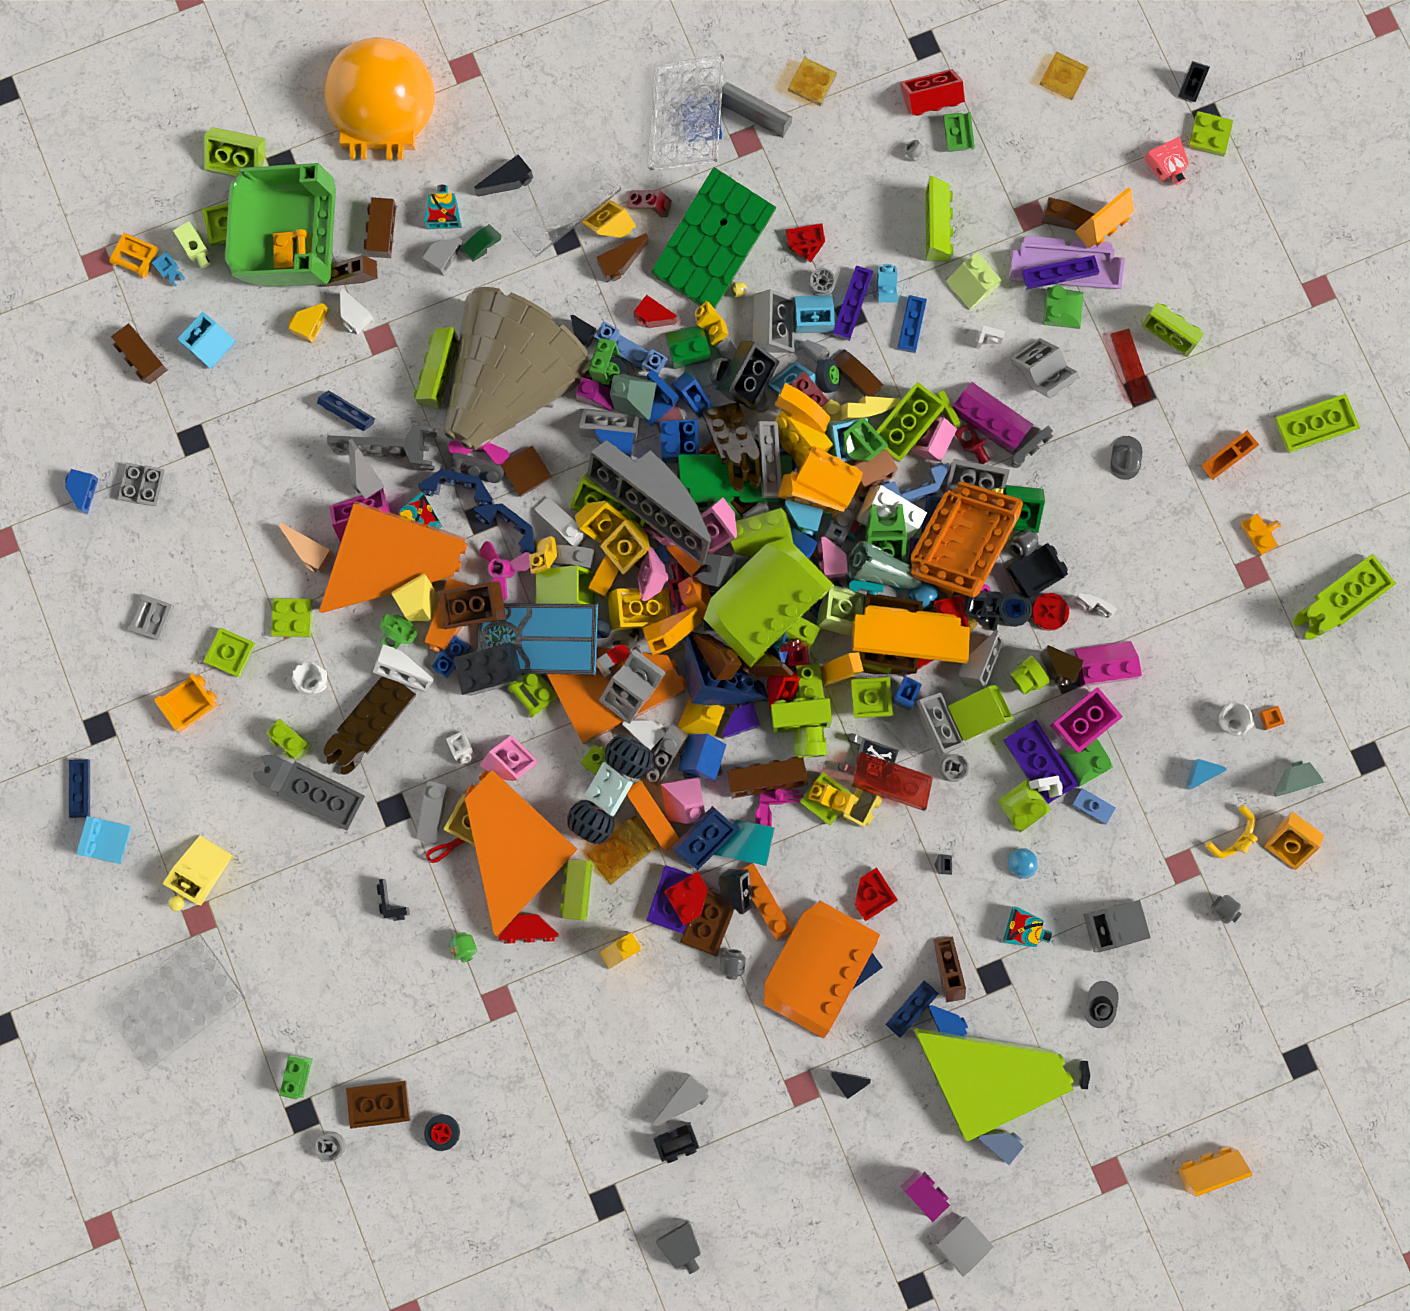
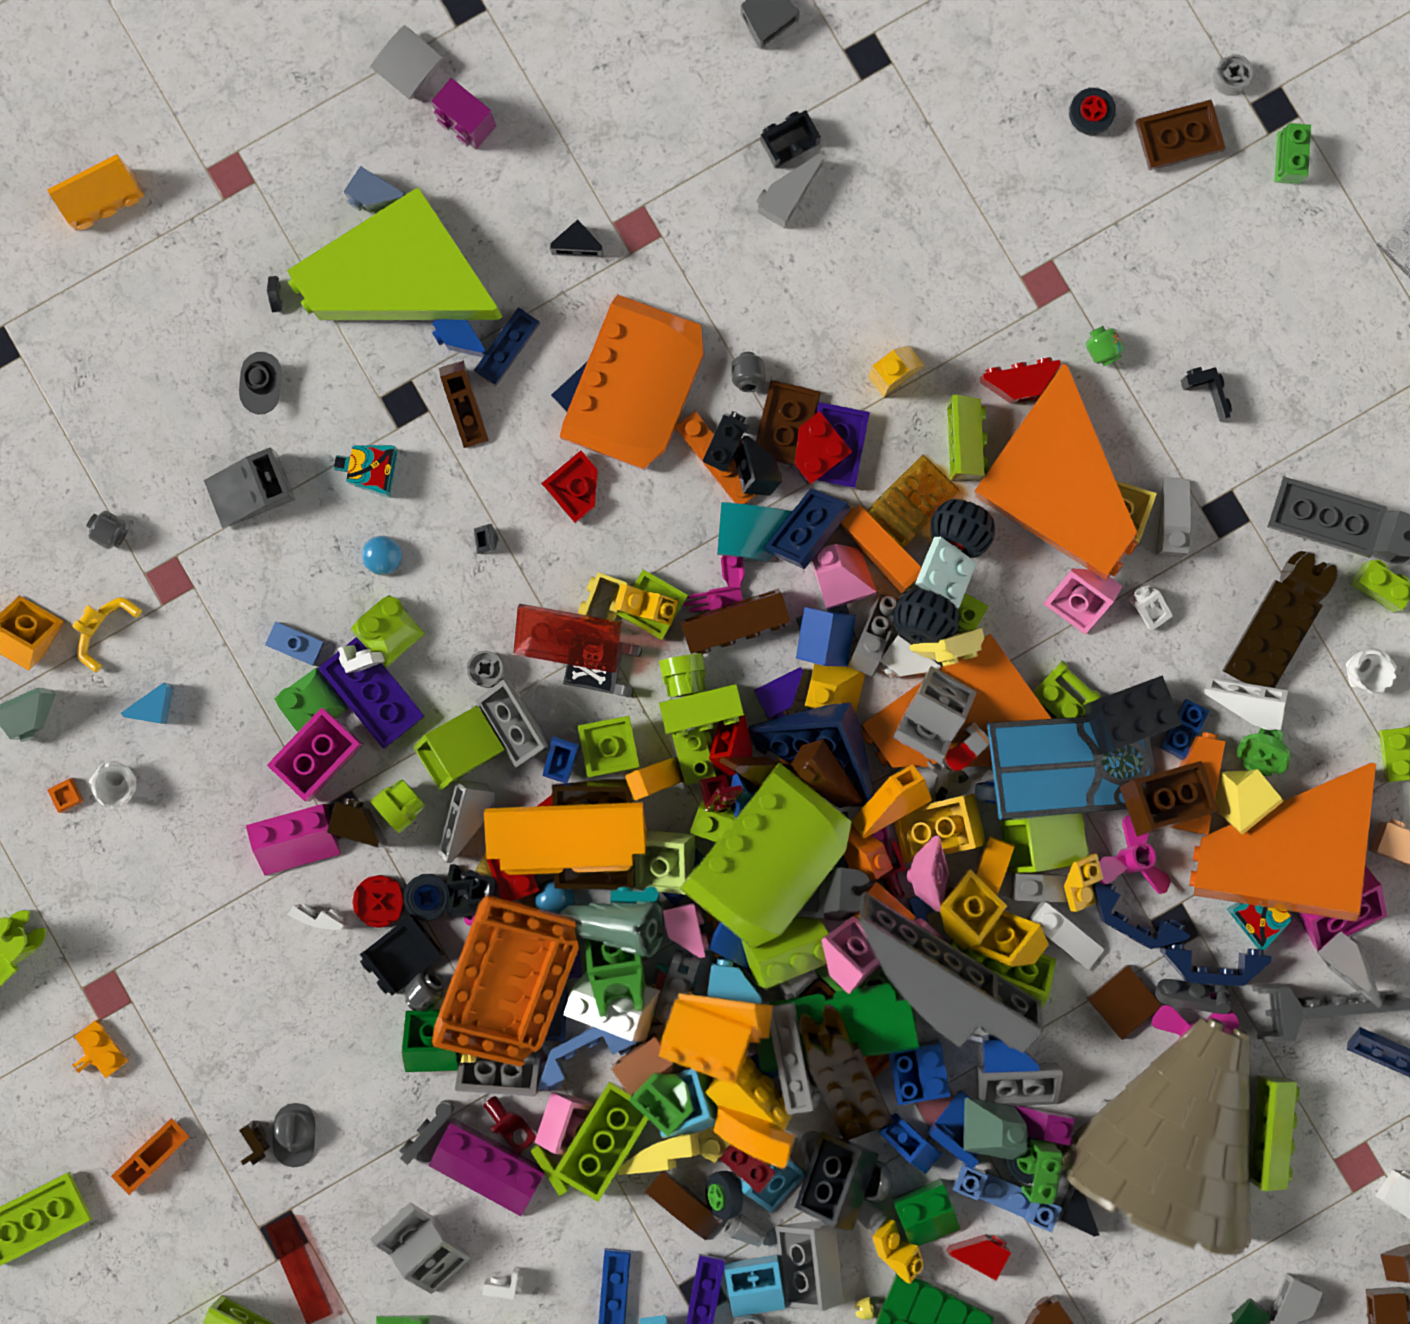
camera: 175 degrees right, 5 degrees up
(450, 845) = (1142, 476): red piece -> none
(603, 733) = (948, 650): none -> light yellow slope
(756, 913) = (726, 440): none -> black bracket
(1153, 455) = (255, 1138): none -> dark brown bracket

